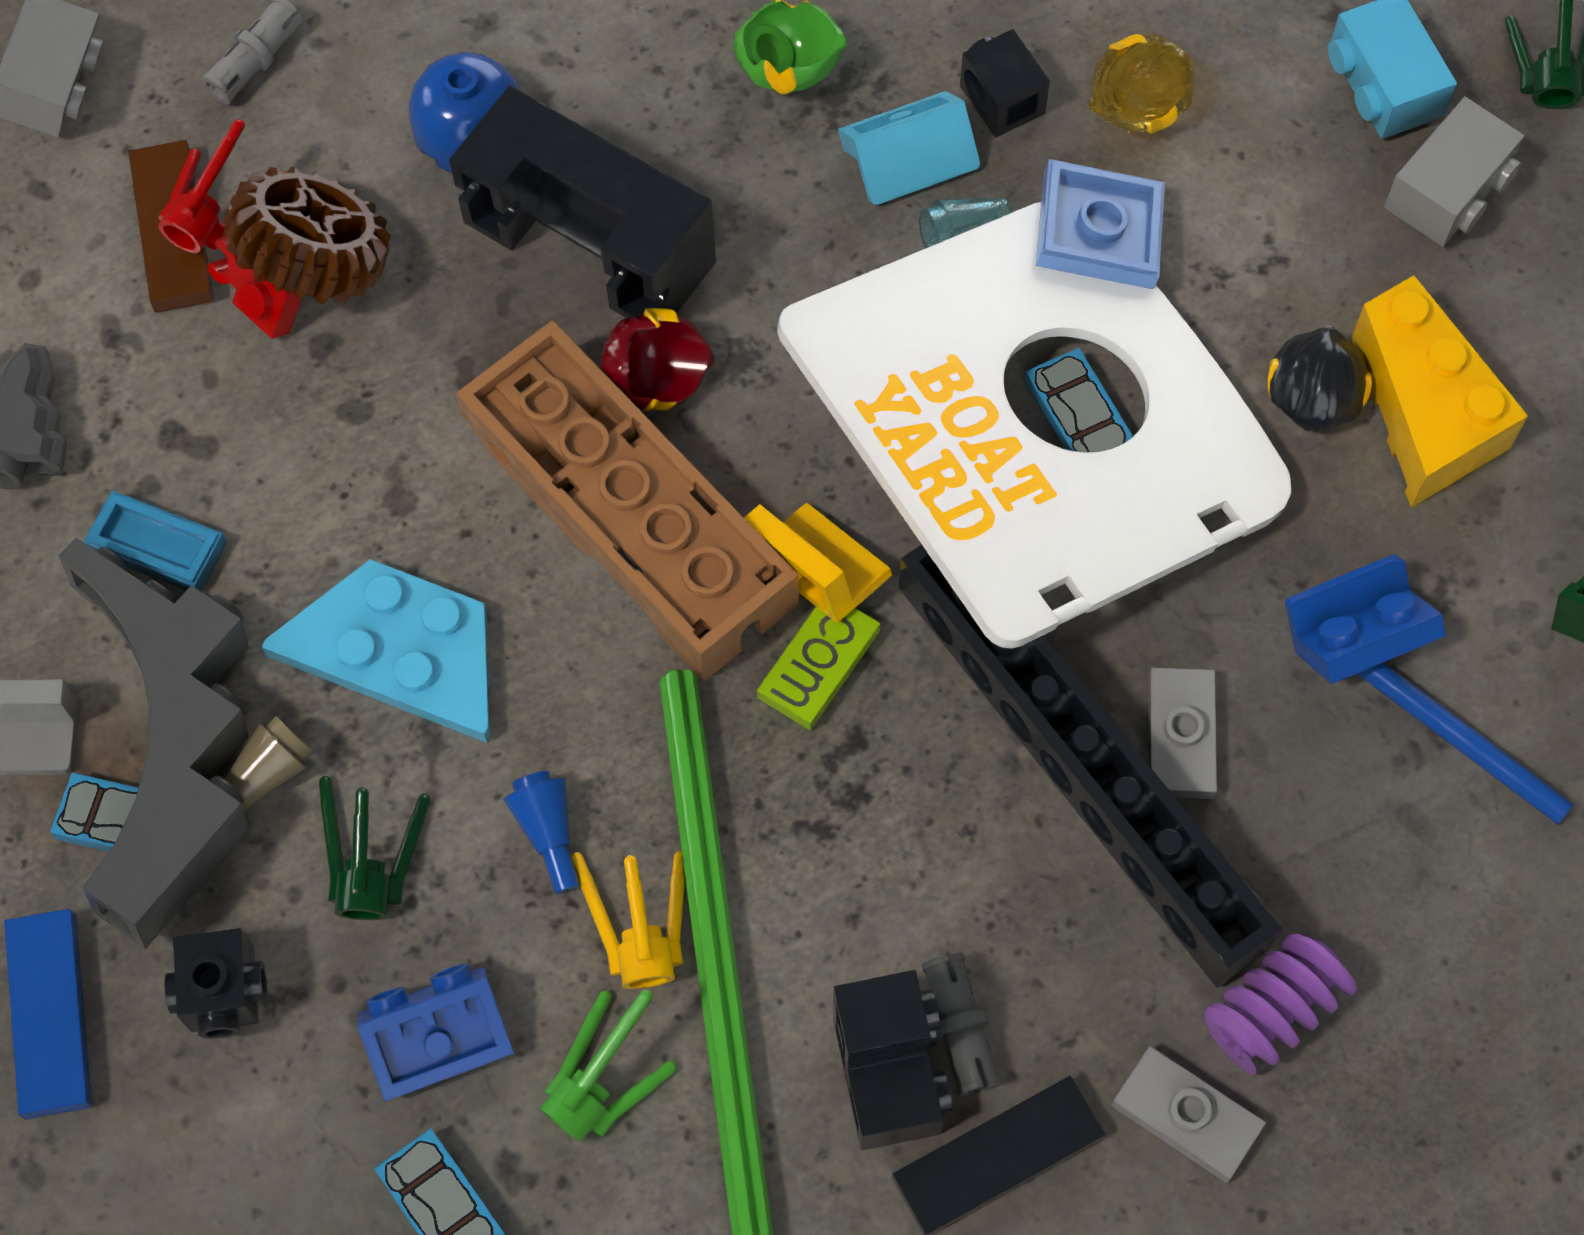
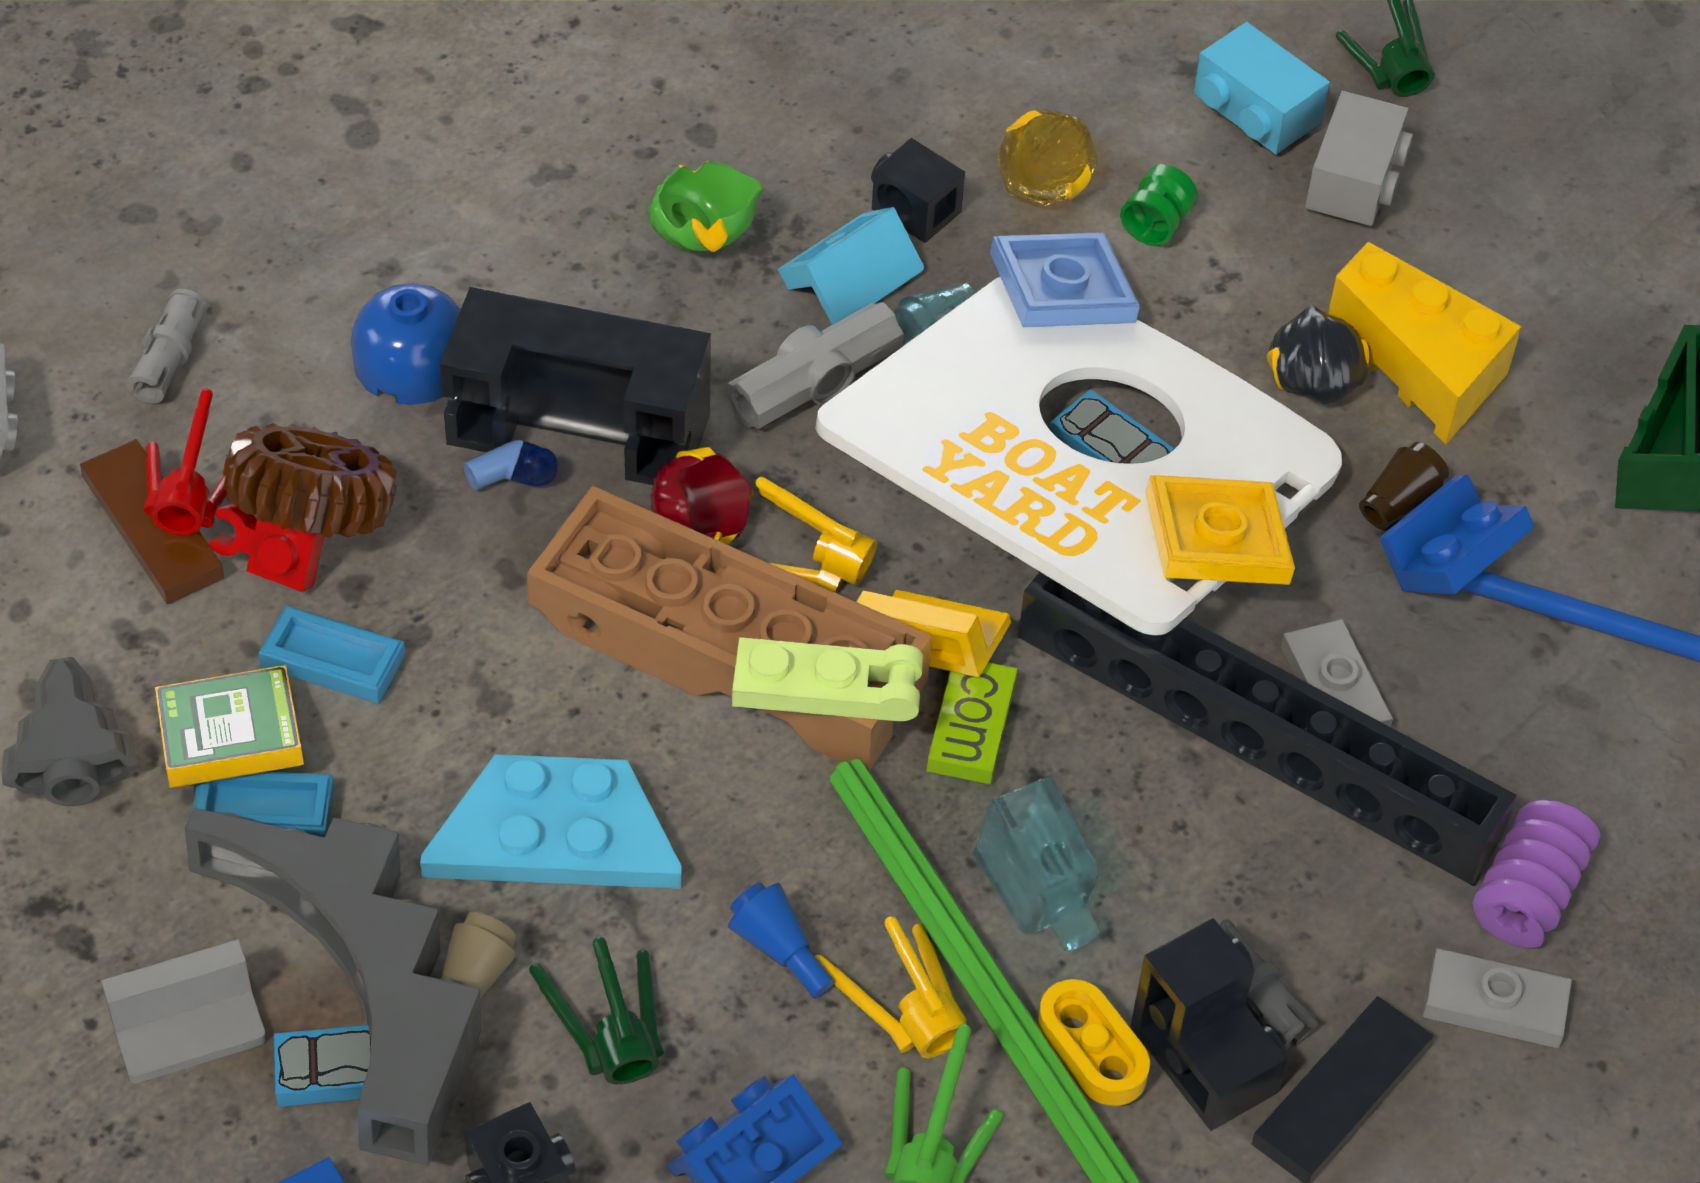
camera: 25 degrees left, 15 degrees down
(150, 457) = (228, 726): none -> tile
(274, 409) = (332, 654): none -> dark azure tile
(511, 262) = (512, 461): none -> arm
(675, 592) = (827, 679): none -> yellowish green plate
(768, 447) = (840, 550): none -> yellow plant
(784, 1031) = (1097, 1046): none -> yellow plate
(804, 817) = (1039, 863): none -> clear light blue torso
(827, 244) = (815, 365): none -> light grey piece
(1116, 552) = (1219, 530): none -> yellow tile
(1239, 161) = (1165, 198): none -> green wheel
(1341, 545) = (1404, 484): none -> dark brown cone

